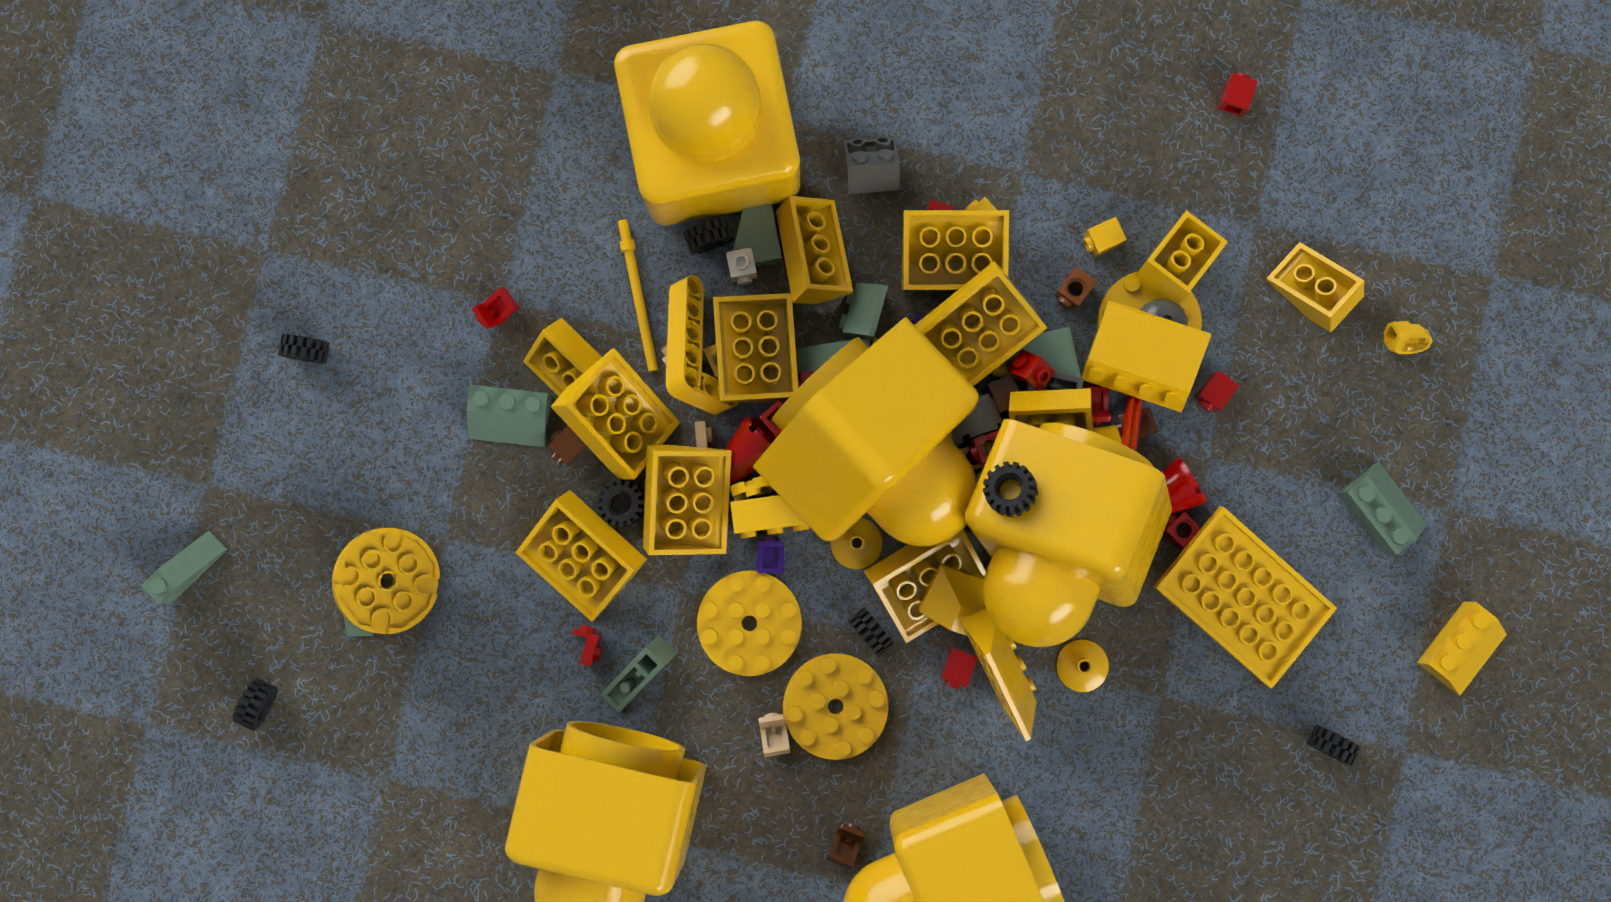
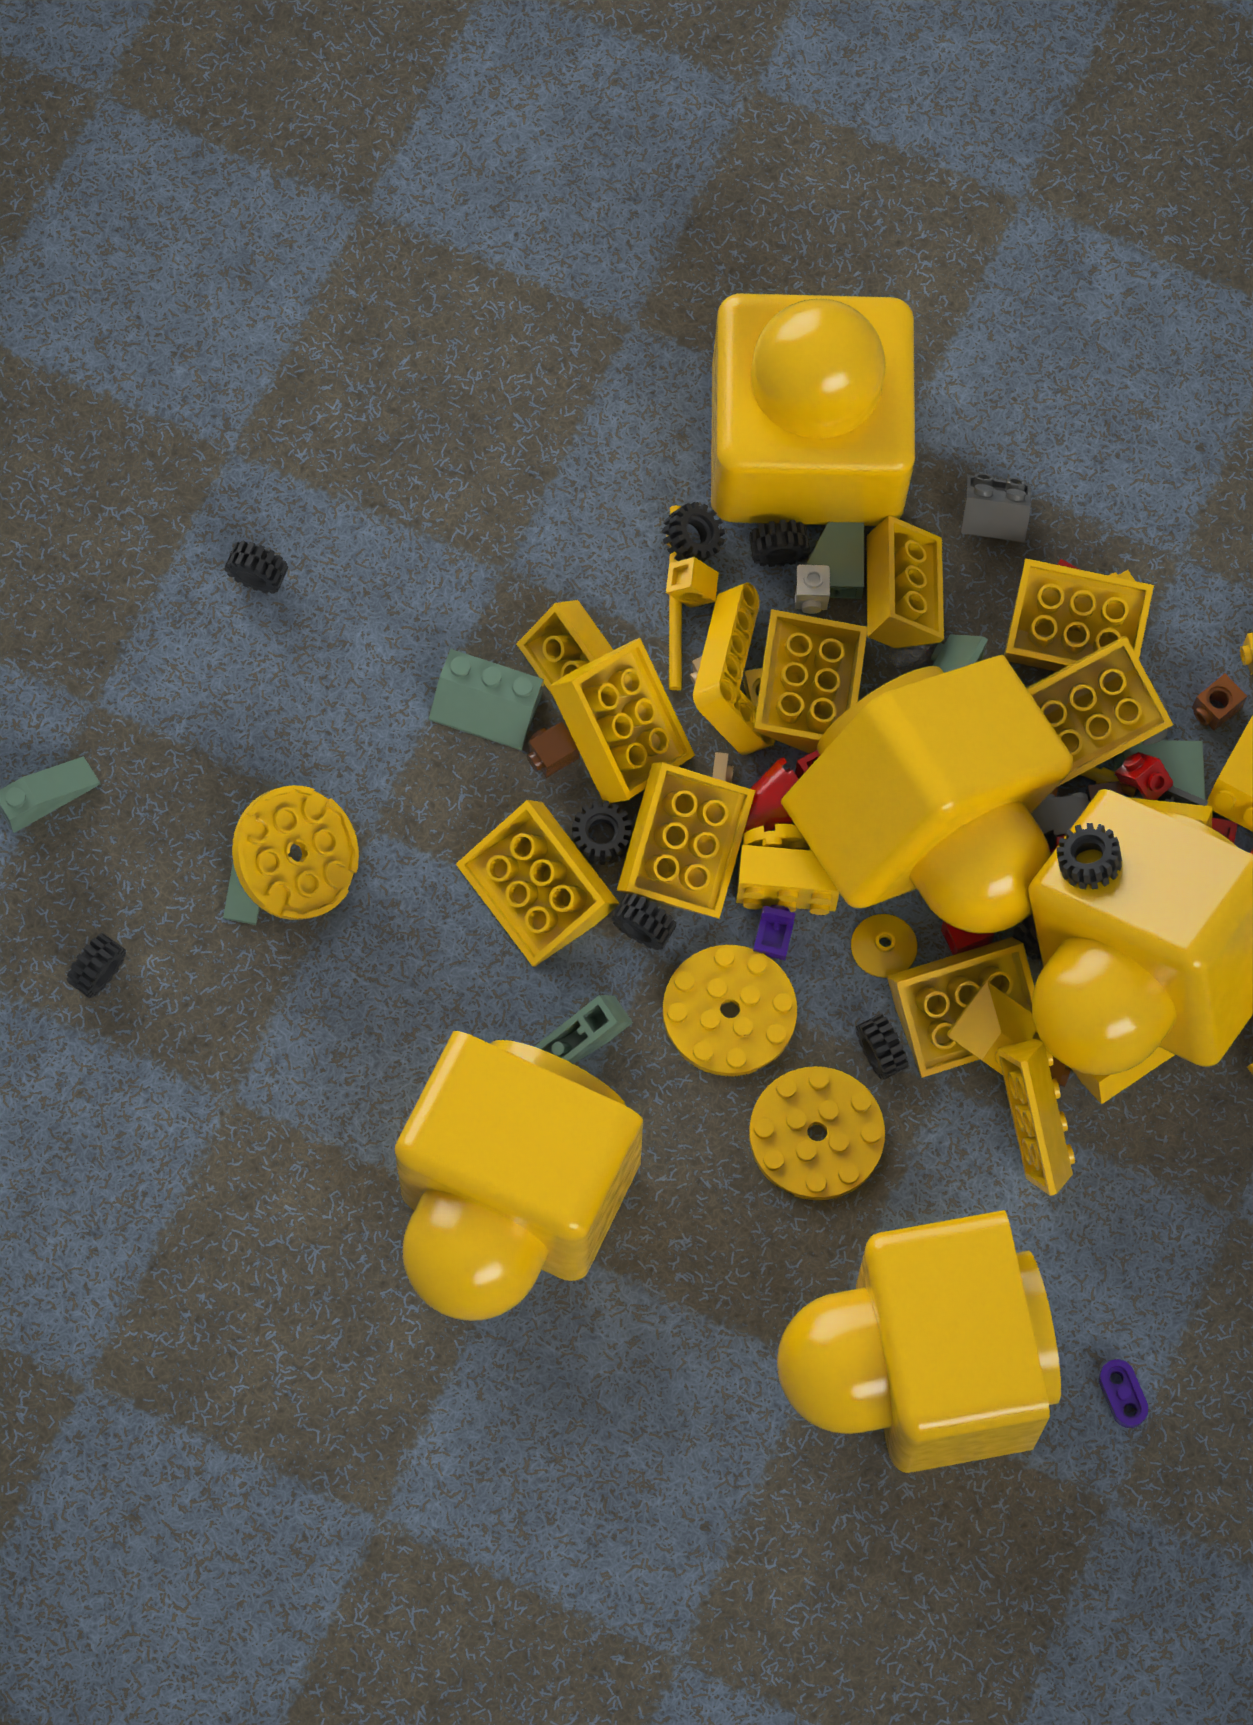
camera: 10 degrees right, 15 degrees down
(496, 309) = (499, 574): red bracket -> none
(592, 650) = (526, 996): red bracket -> none
(647, 283) = (692, 582): none -> yellow brick
(649, 232) = (705, 525): none -> black tyre
(668, 573) = (644, 921): none -> black tyre
(774, 734) = (733, 1145): tan bracket -> none
(846, 845) = (794, 1296): reddish brown bracket -> none
(958, 668) = (982, 1117): red brick -> none
(1069, 665) = (1137, 1169): yellow dish -> none
(1105, 859) = (1123, 1394): none -> dark purple plate

